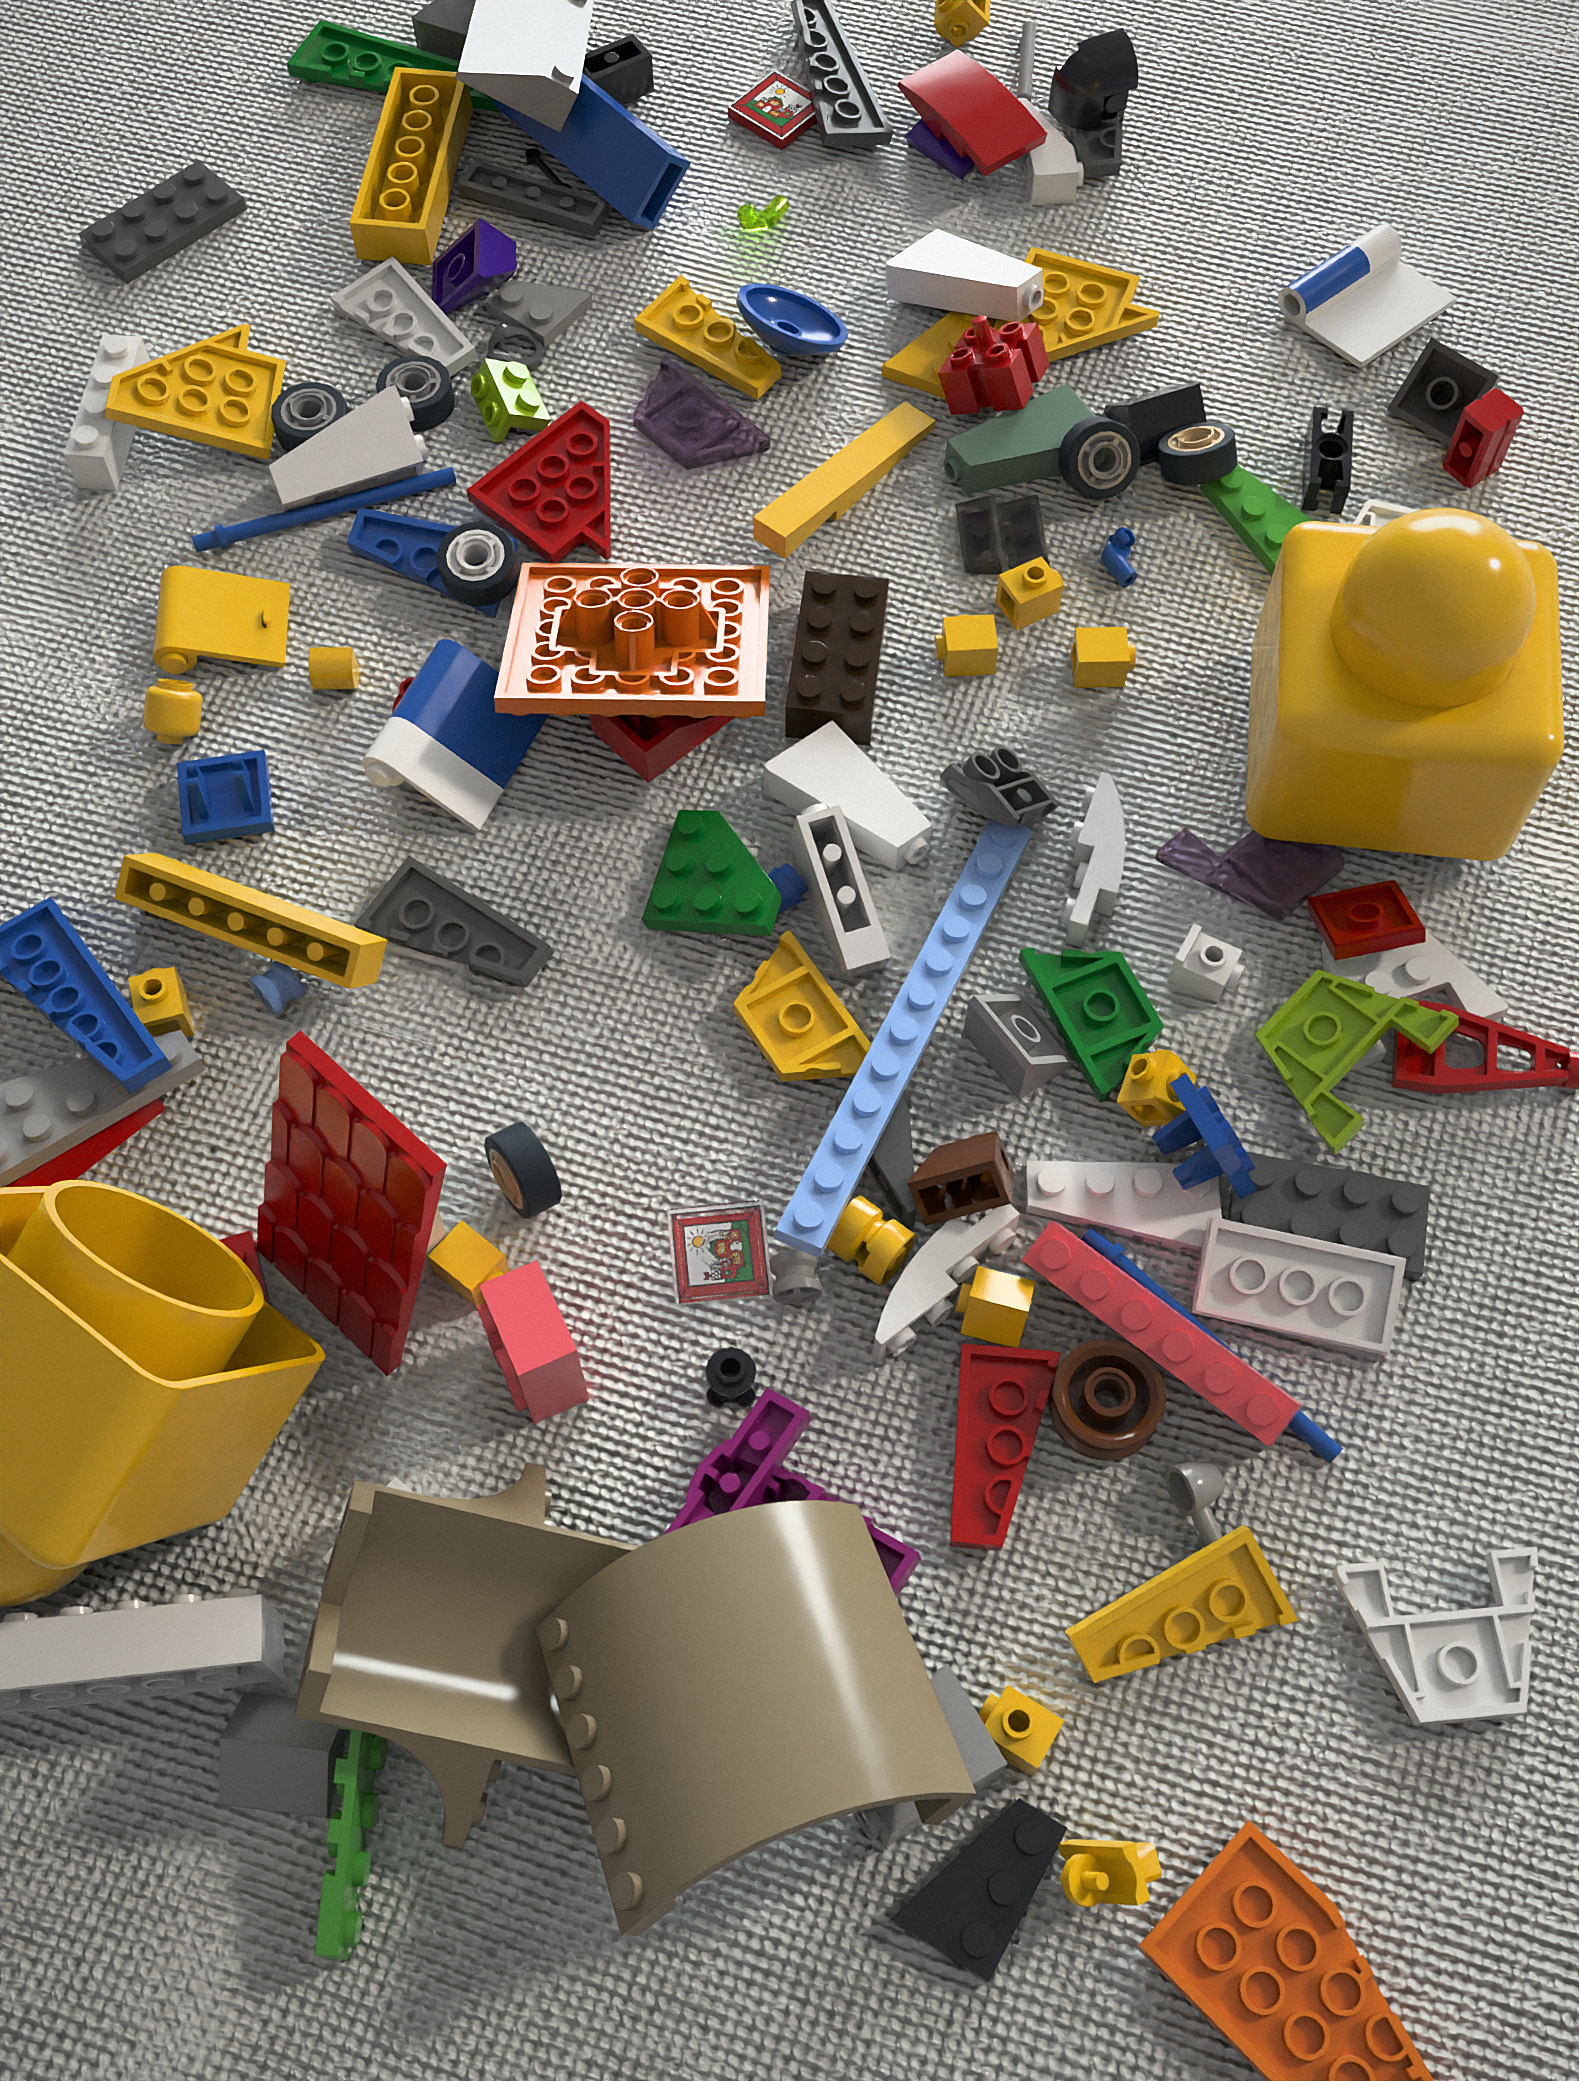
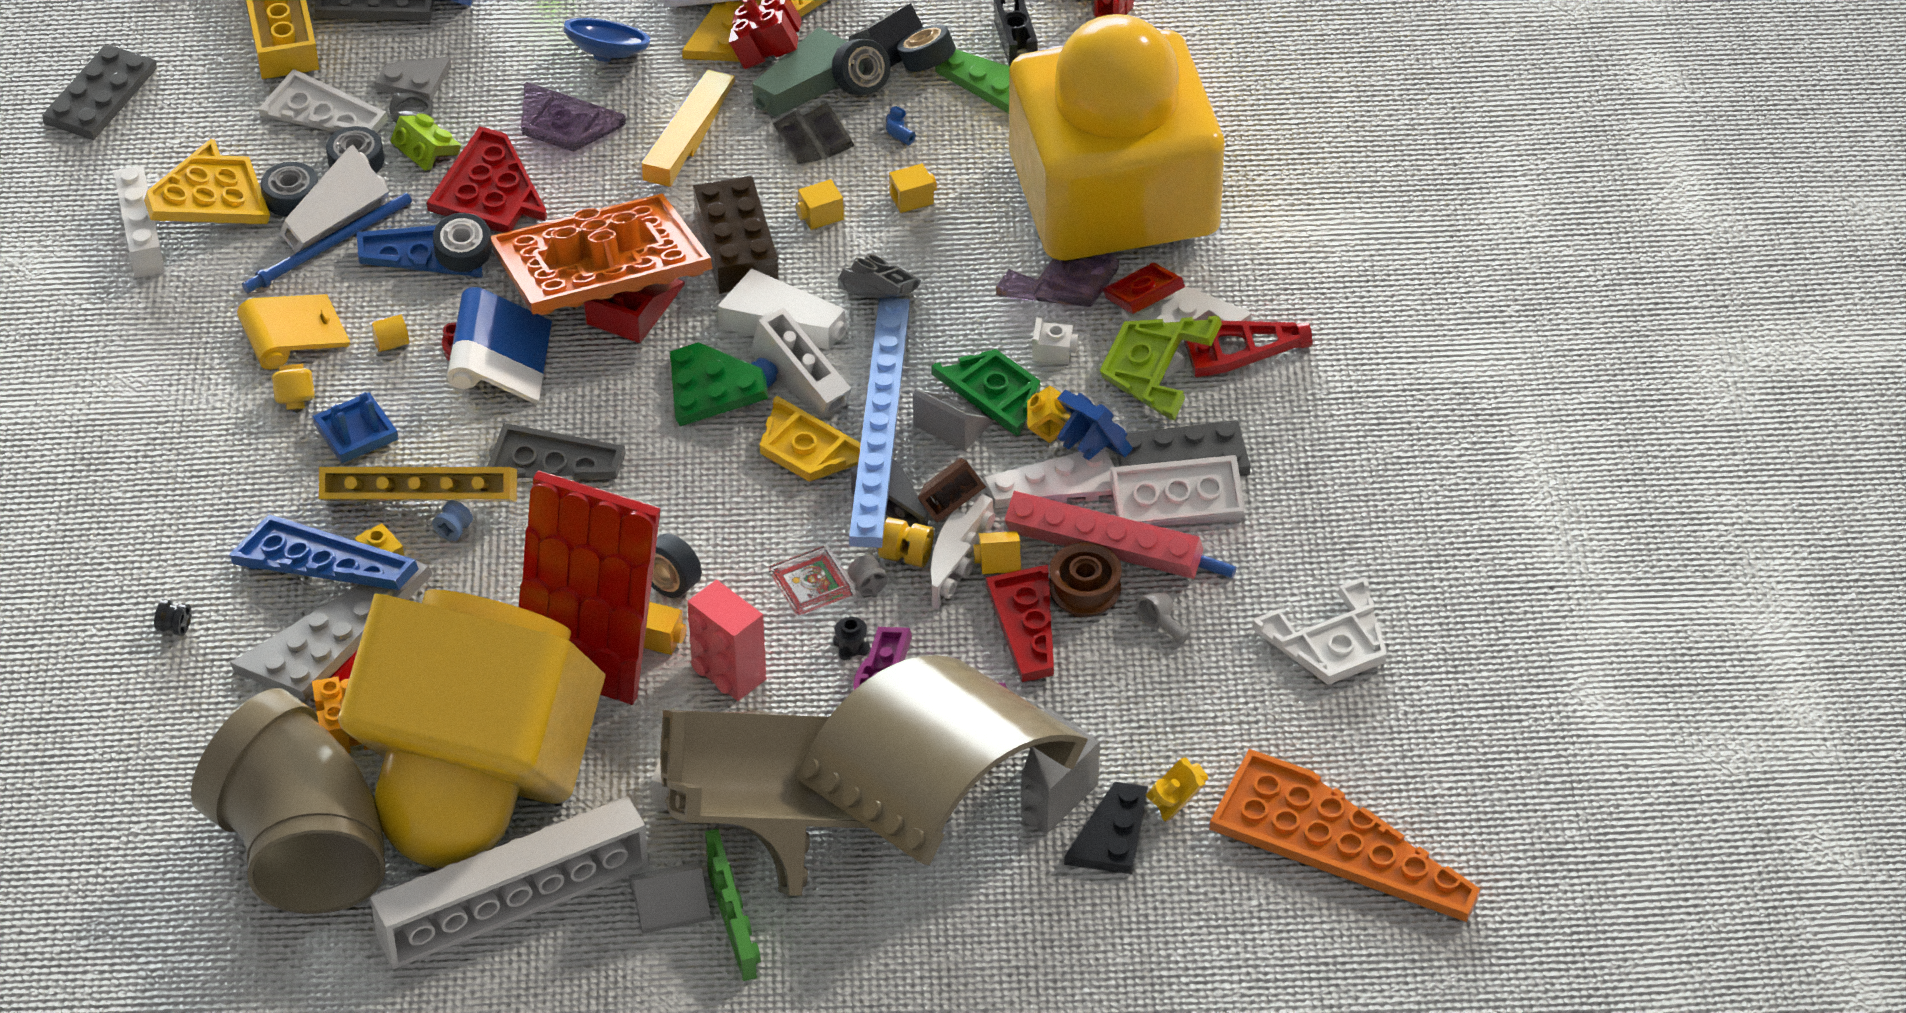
camera: 20 degrees left, 15 degrees down
(472, 266) = (353, 60): dark purple slope -> none
(697, 333) = (537, 63): yellow wing -> none
(1020, 1728) = (1110, 747): yellow brick -> none
(1029, 593) = (847, 163): yellow brick -> none
(1098, 858) = (959, 301): white slope -> none
(1197, 1602) = (1178, 662): yellow wing -> none

